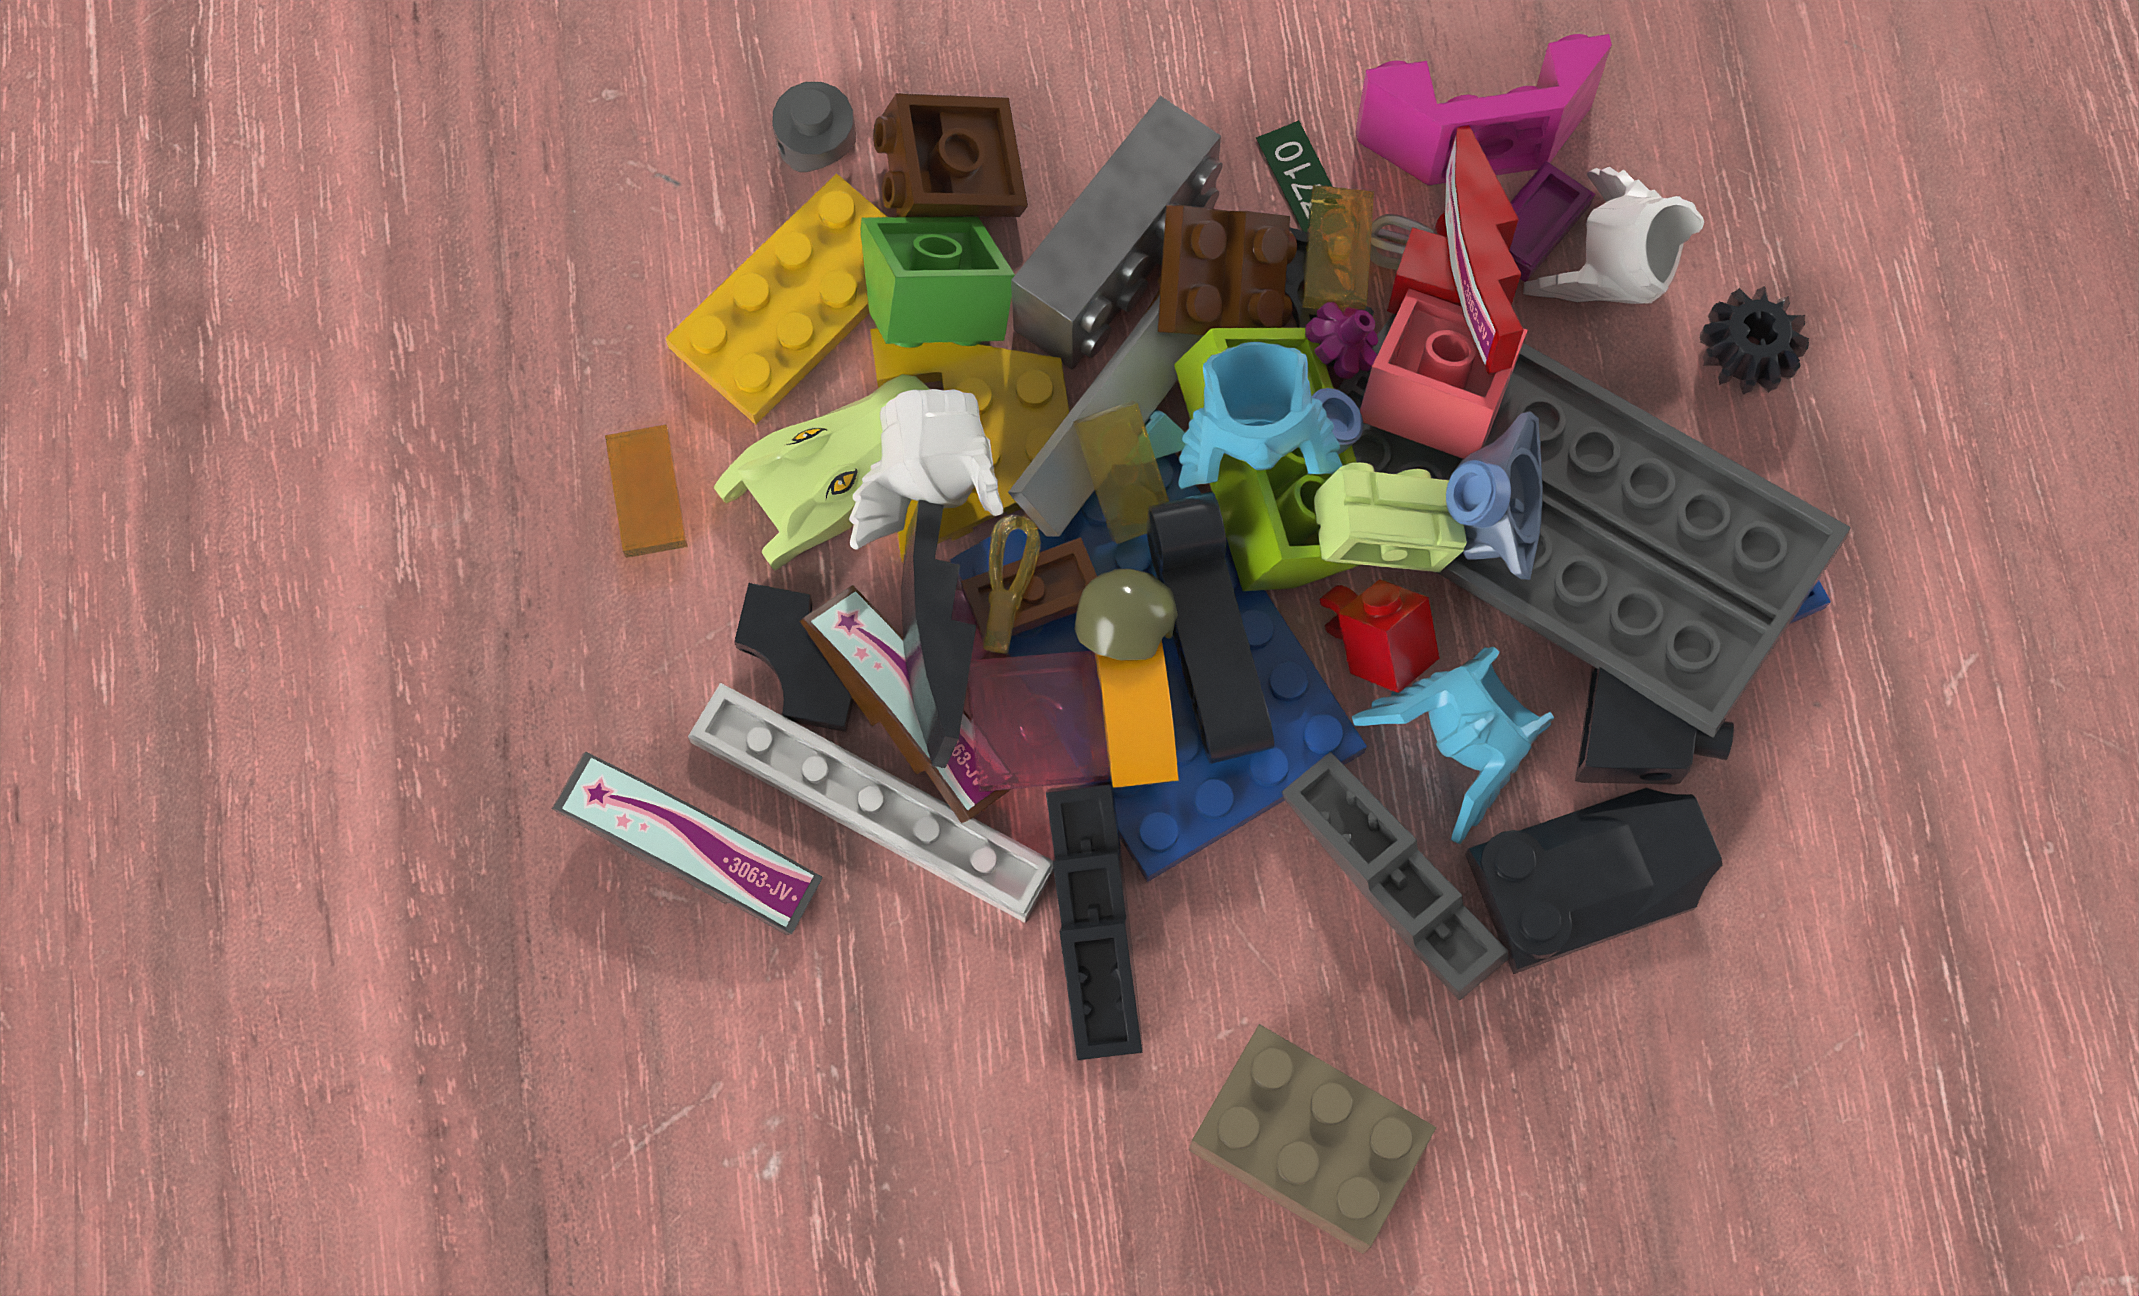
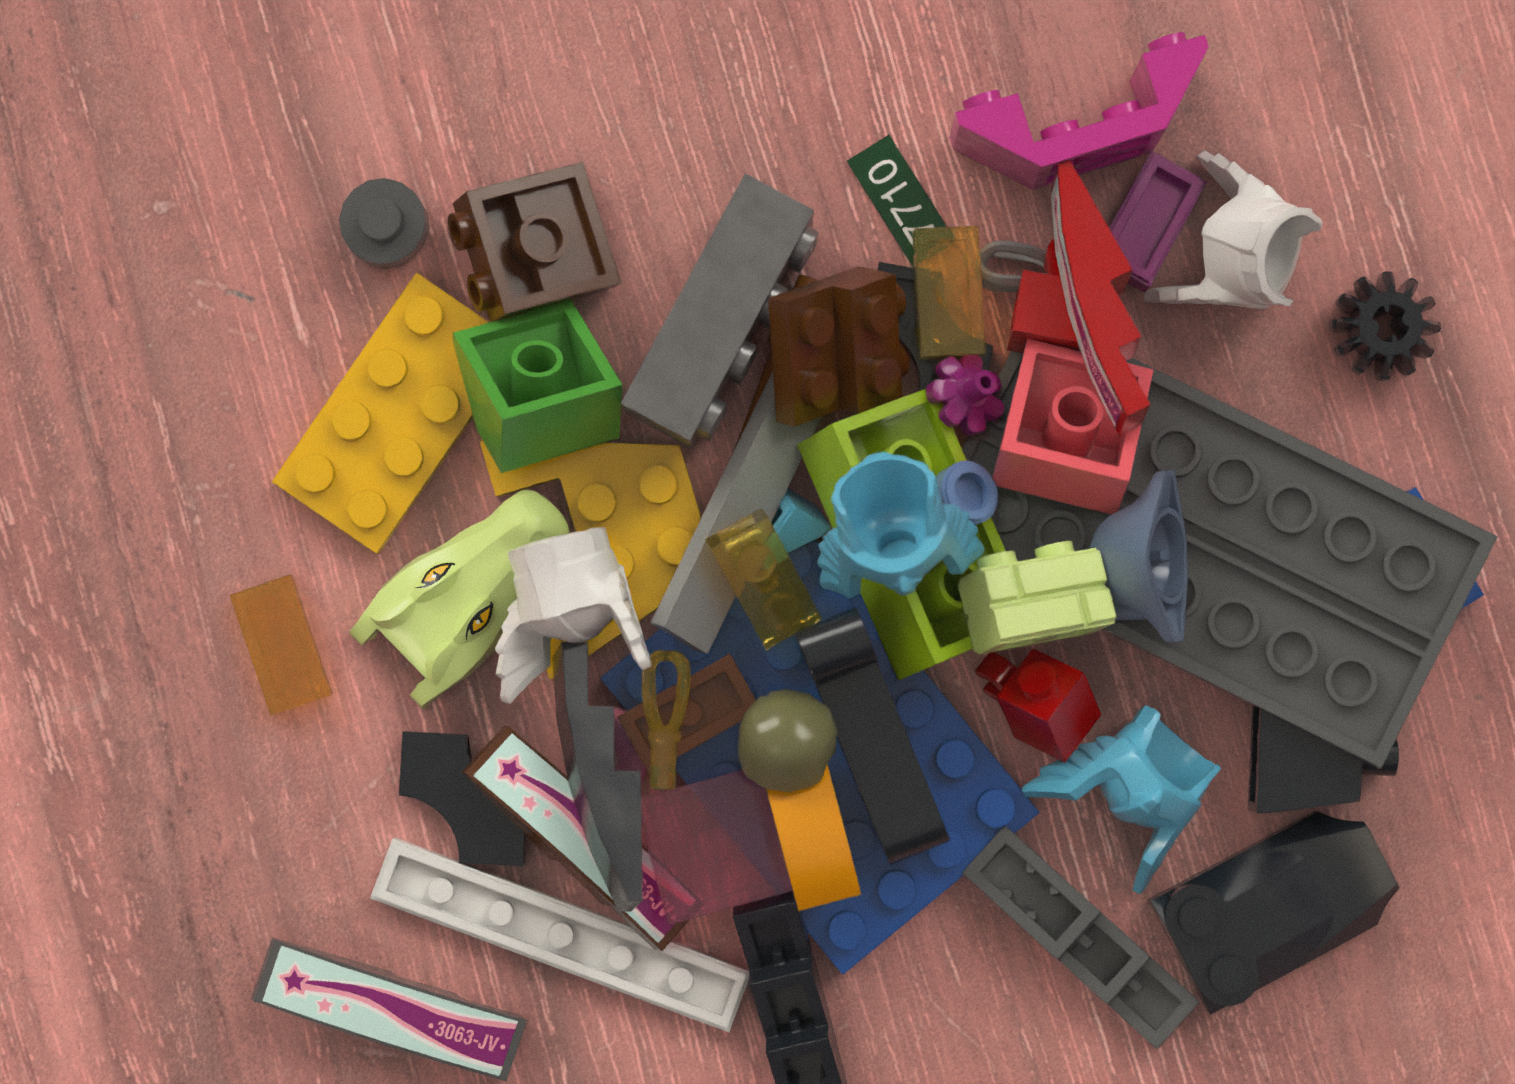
camera: 10 degrees left, 15 degrees up
(1478, 494) = (1122, 572): medium blue tile -> none

